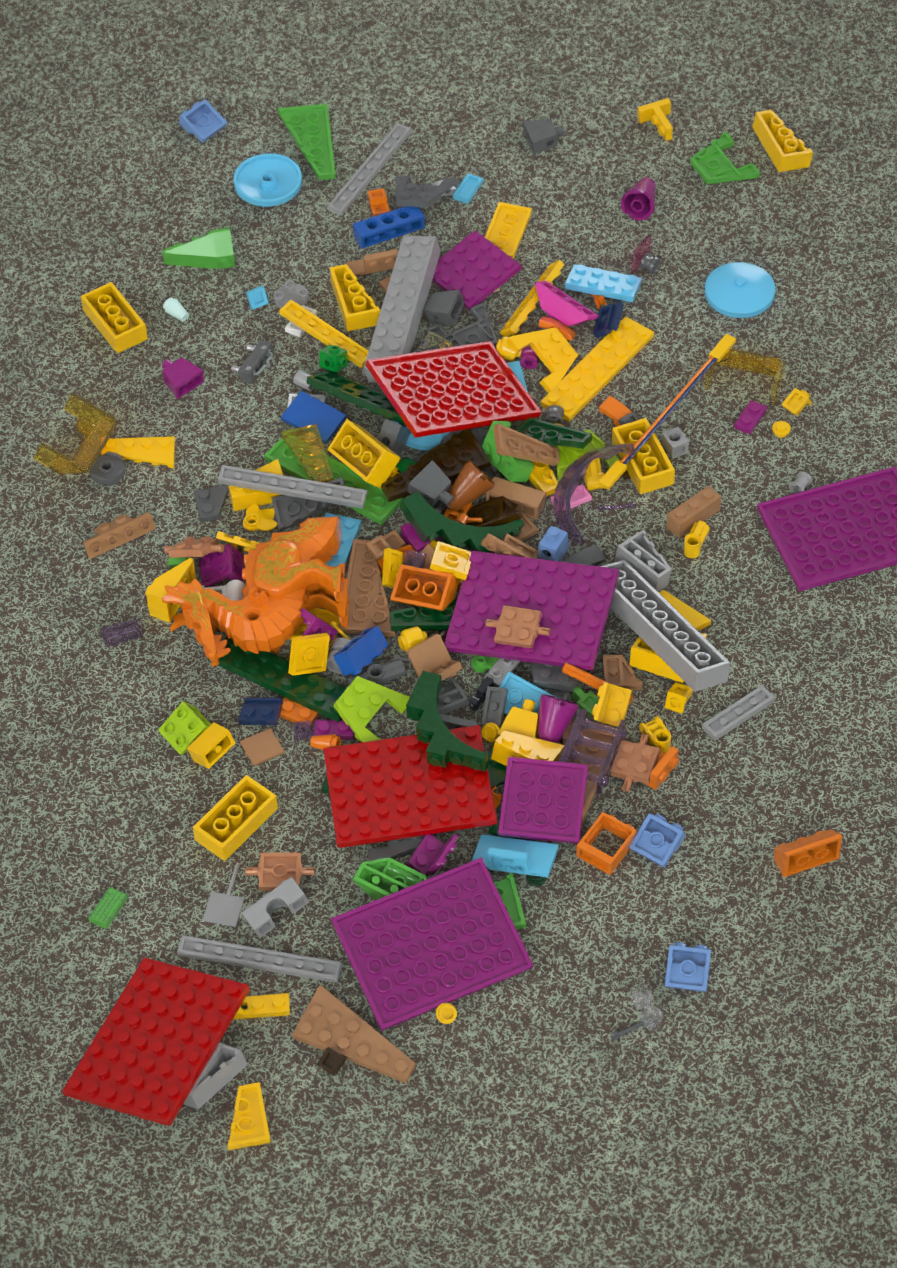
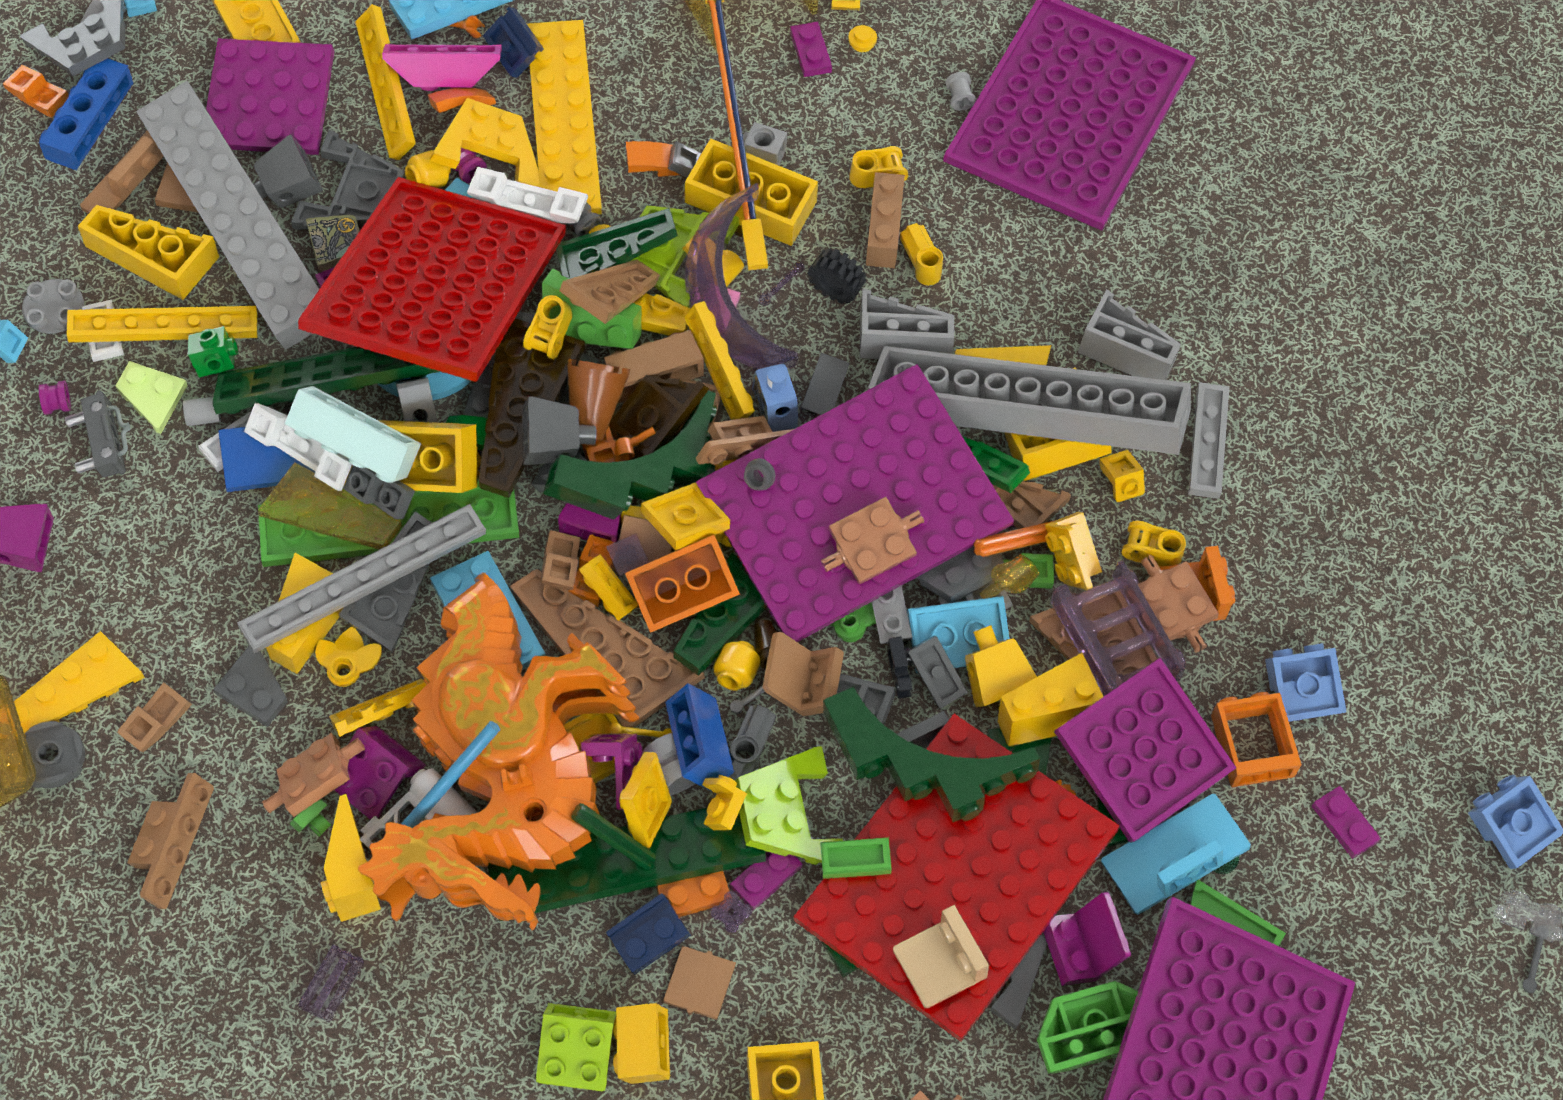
camera: 50 degrees left, 10 degrees up
(154, 485) = (152, 721): none -> medium nougat slope
(240, 577) = (452, 775): none -> dark azure bar
(252, 333) = (54, 397): none -> magenta wheel
(278, 654) = (613, 836): none -> dark green axle
(293, 359) = (151, 393): none -> yellowish green wing
(325, 741) = (780, 903): orange cone -> none
(327, 416) = (270, 429): none -> white slope
(337, 457) = (389, 497): none -> dark grey slope
(337, 682) = (726, 805): none -> yellow bracket
(344, 423) = (352, 434): none -> light aqua brick
(359, 804) = (942, 959): none -> tan bracket
(370, 743) = (855, 858): none -> bright green tile
(478, 441) = (548, 329): none -> yellow piece
(490, 732) = (965, 707): yellow plate -> none
(496, 563) = (753, 477): none -> dark grey plate
(535, 387) = (555, 206): none -> white slope
(546, 508) = (718, 362): none -> yellow plate
(554, 717) = (1033, 621): magenta cone -> none
(570, 691) = (1011, 577): none -> clear yellow piece
(610, 909) = (1346, 822): none -> magenta plate
(617, 644) = (999, 467): none -> green hinge
(640, 517) = (836, 275): none -> black tyre
(721, 486) = (868, 162): none -> yellow piece
(745, 642) = (1127, 342): none -> light grey wedge
(808, 852) = (1476, 551): orange slope -> none

